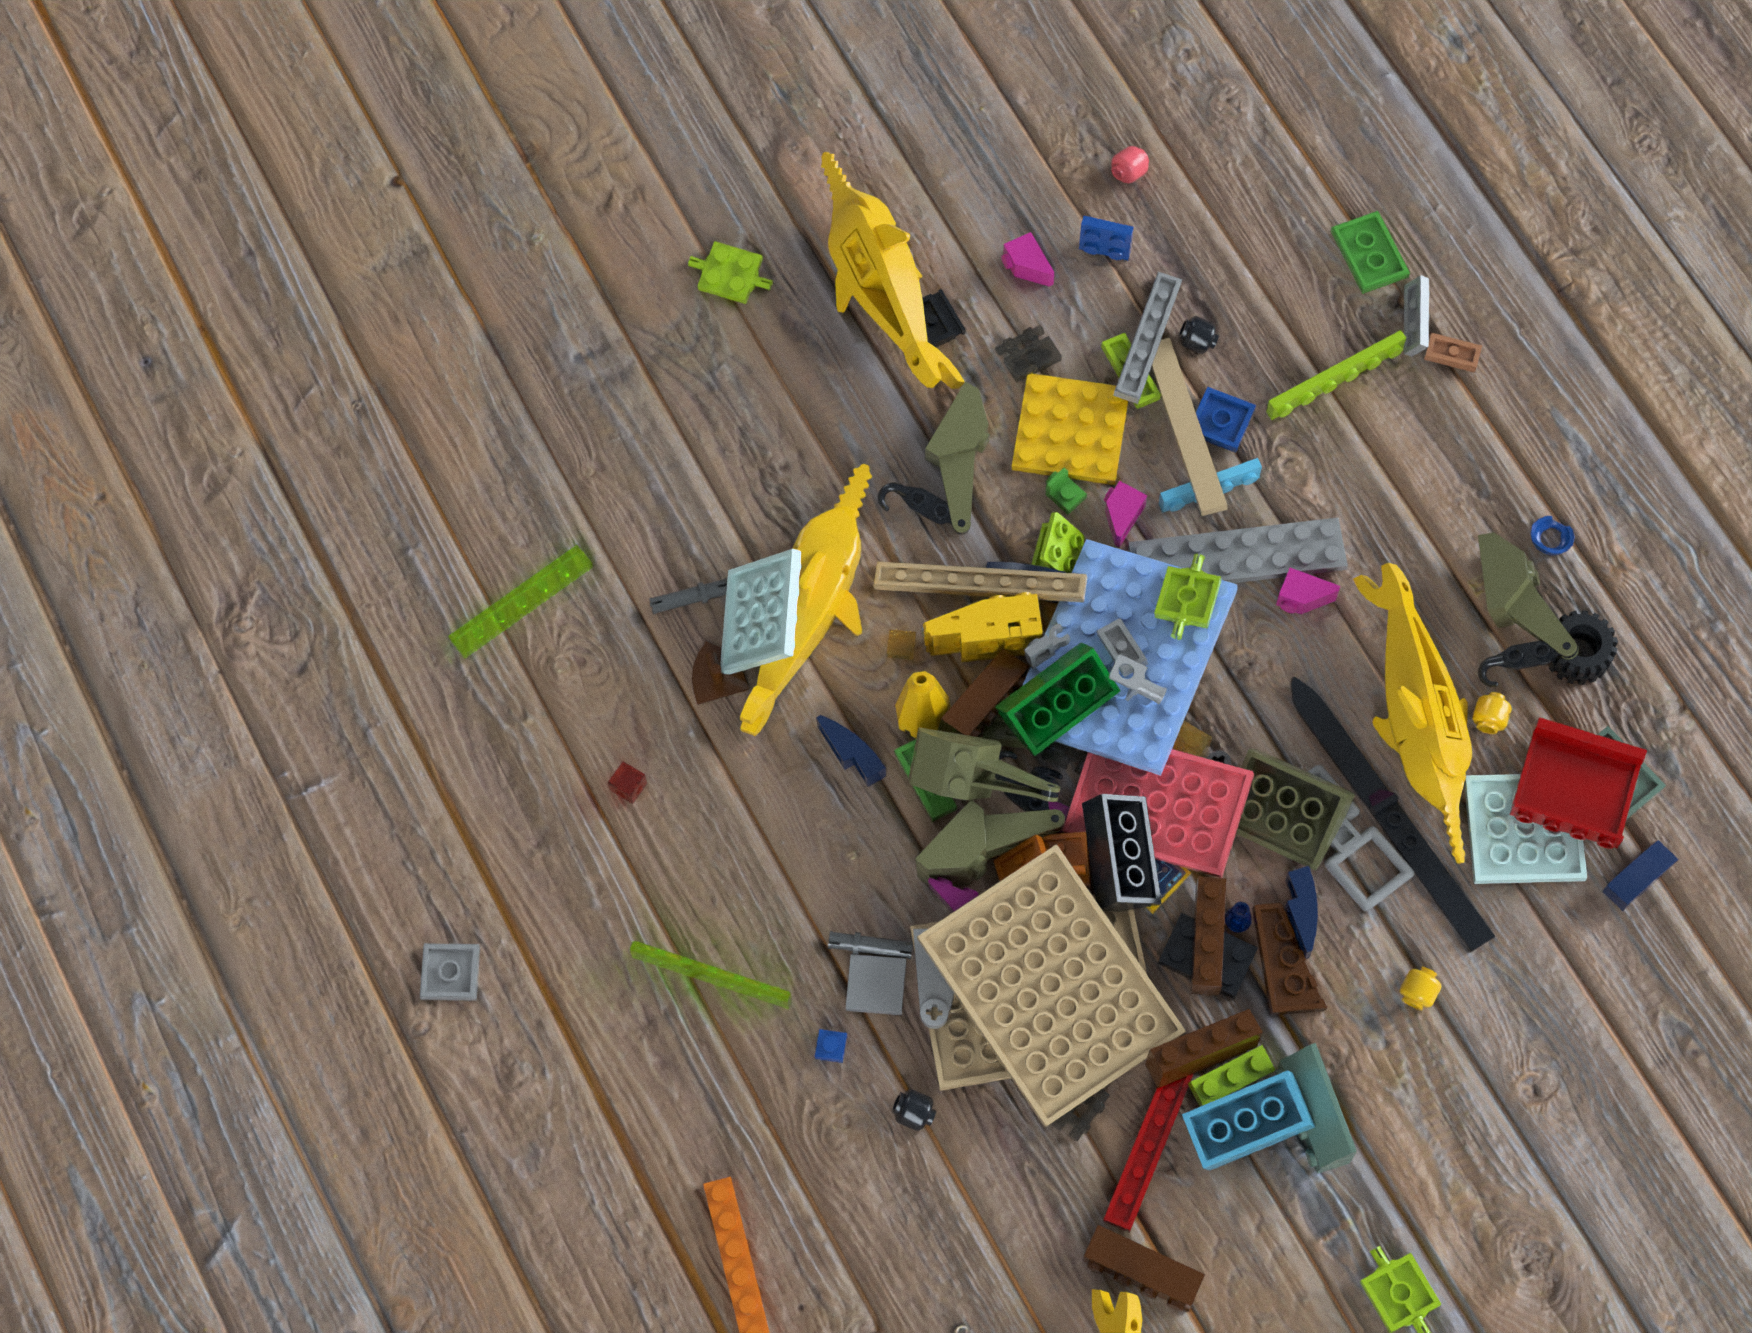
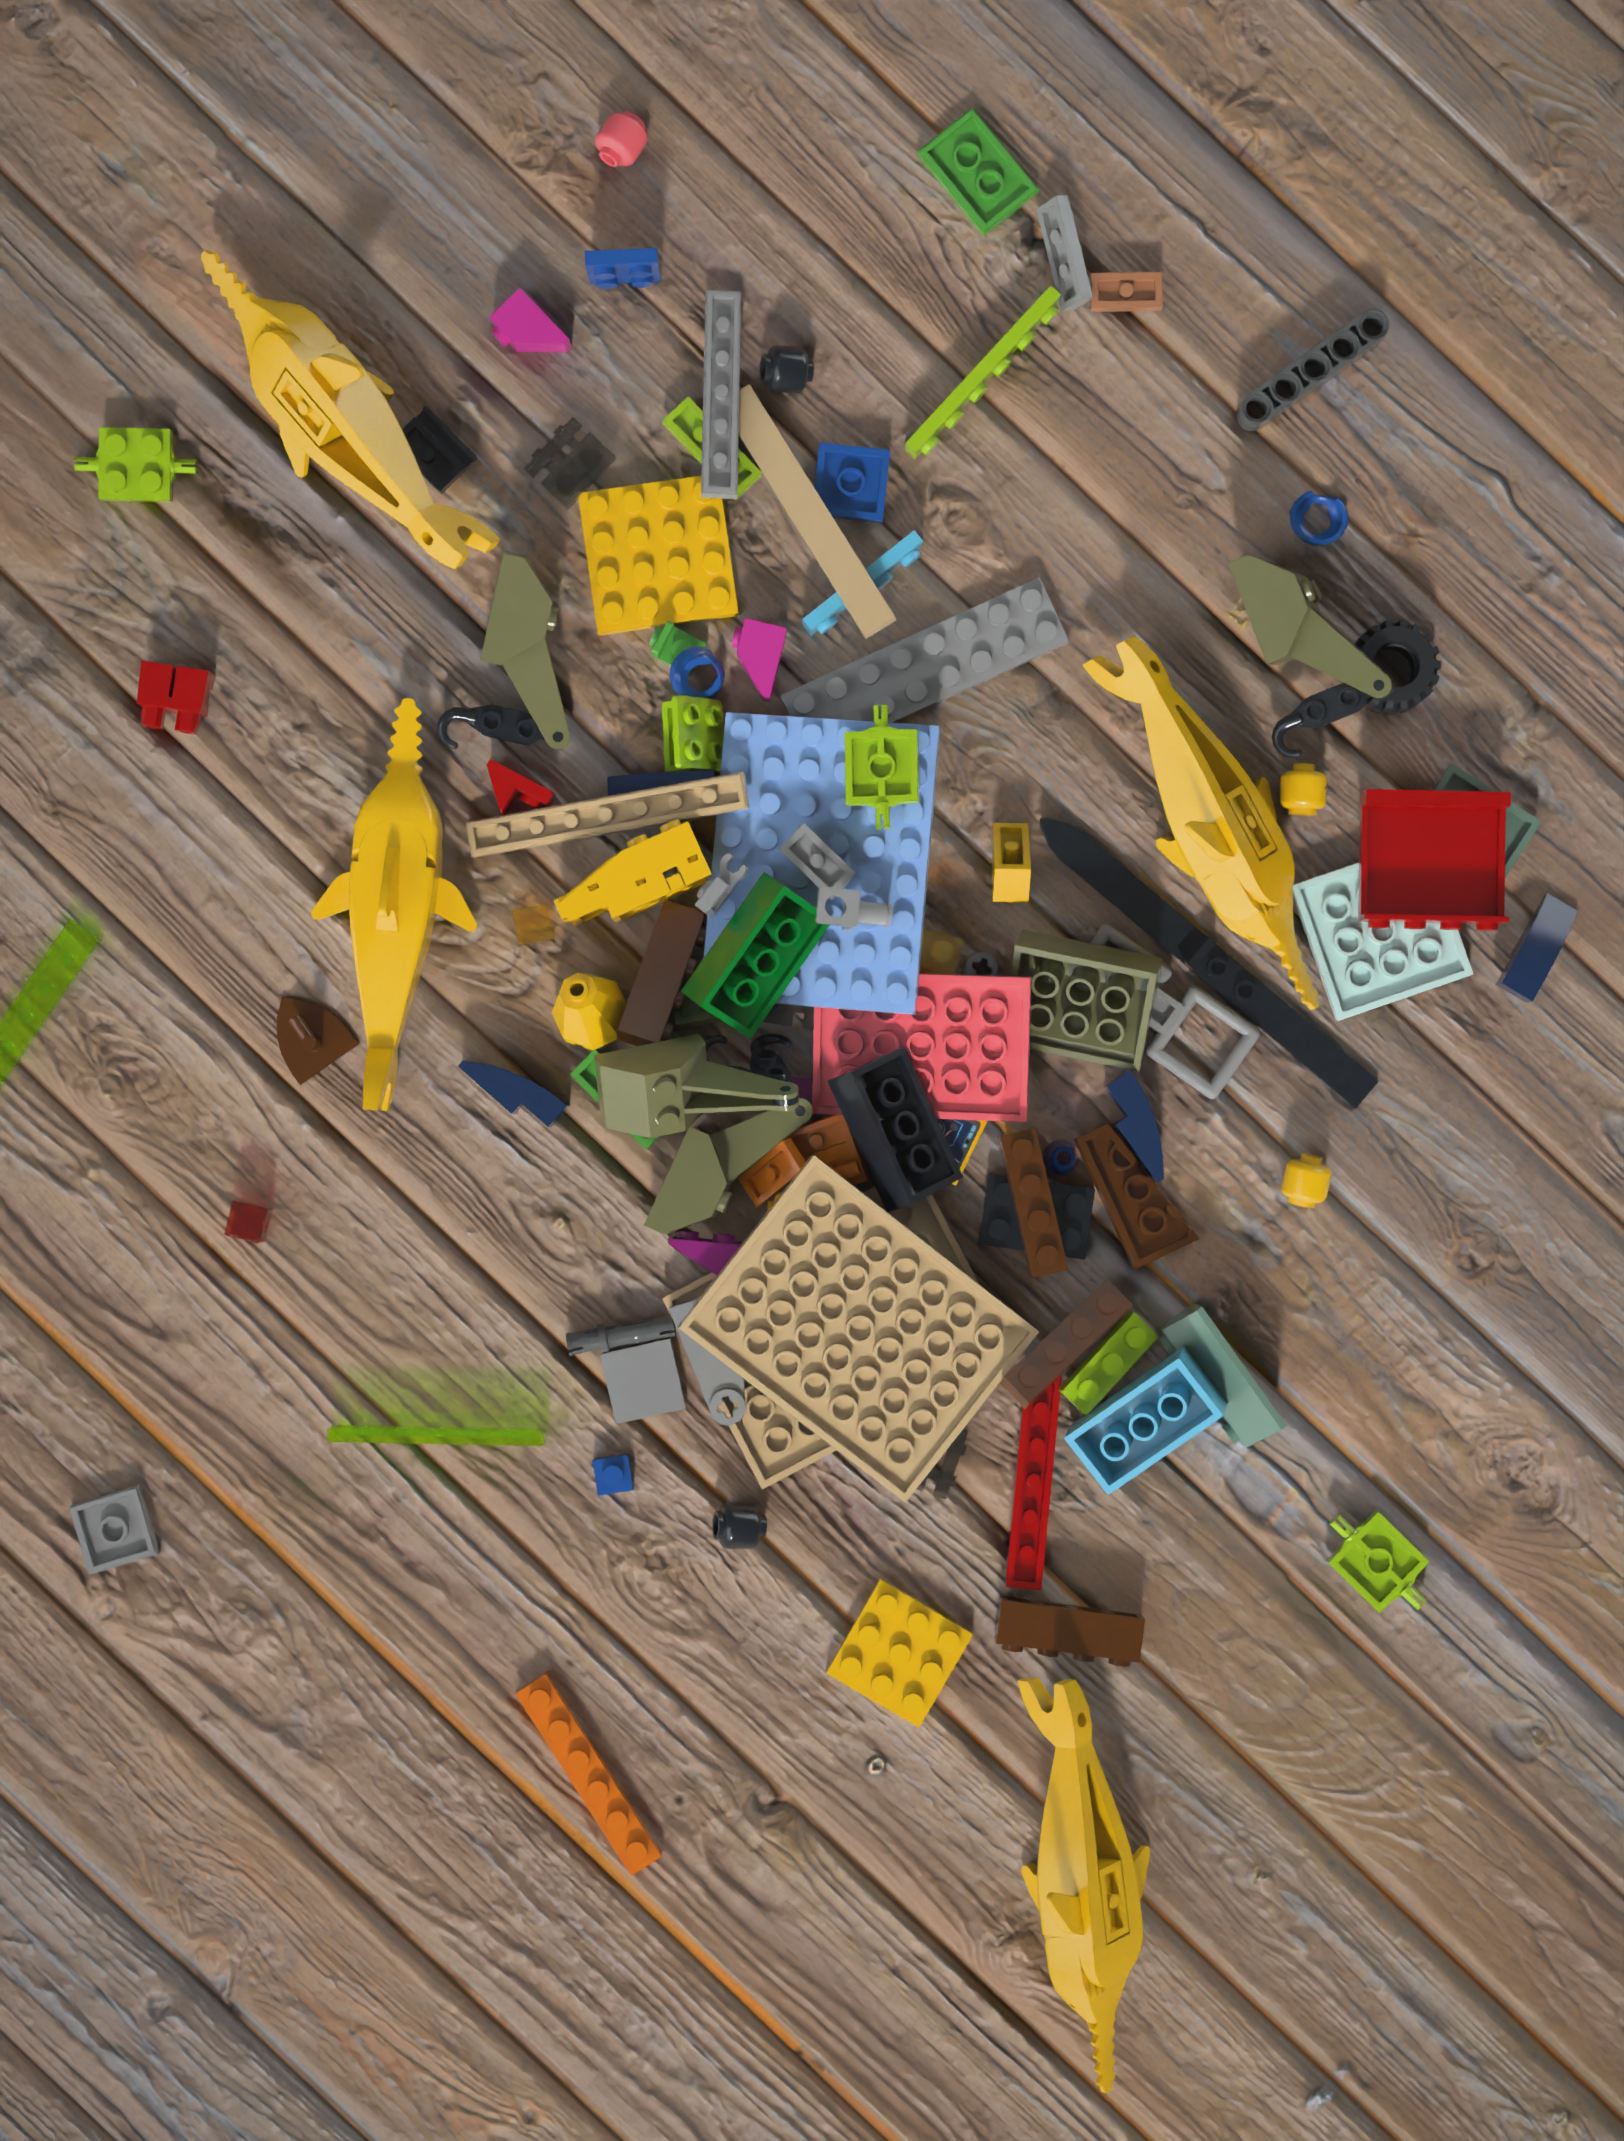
camera: 25 degrees left, 20 degrees up
(700, 593) = (240, 945): dark grey pin -> none
(704, 419) = (174, 690): none -> red hips
(760, 612) = (341, 955): light aqua plate -> none
(919, 544) = (508, 783): none -> red slope
(1006, 1247) = (899, 1652): none -> yellow plate
(1074, 496) = (685, 662): none -> blue piece
(1261, 701) = (1010, 862): none -> yellow slope
(1305, 592) = (1024, 697): dark pink slope -> none
(1581, 429) = (1323, 357): none -> dark grey beam

